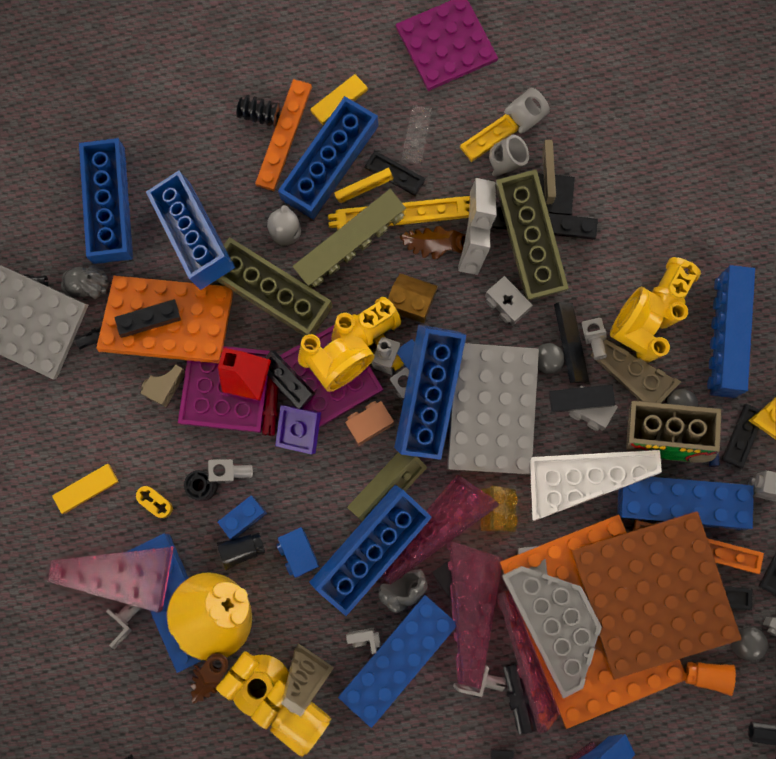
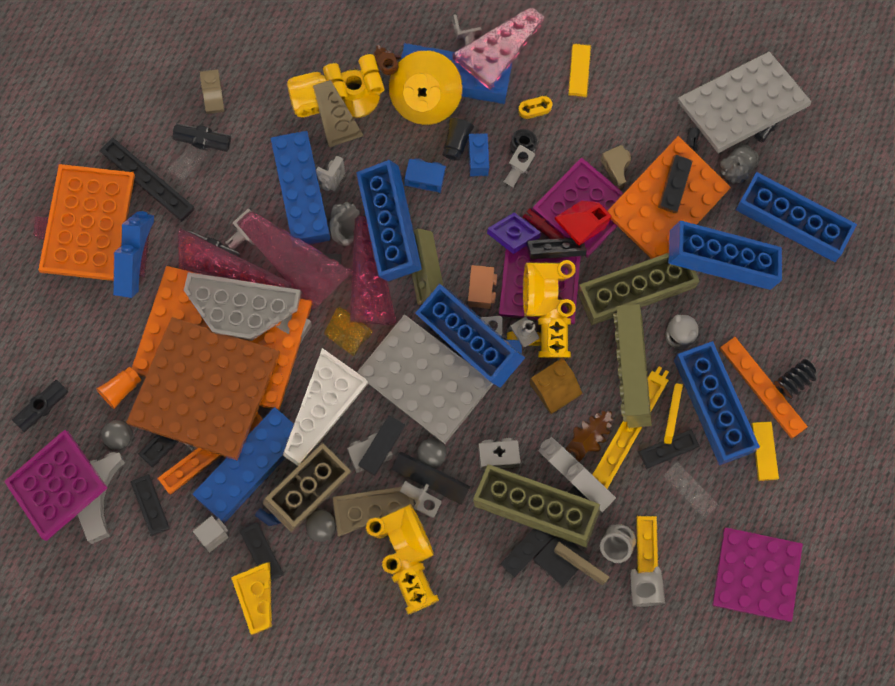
camera: 115 degrees right, 5 degrees down
(732, 332) = (344, 601): blue brick -> none

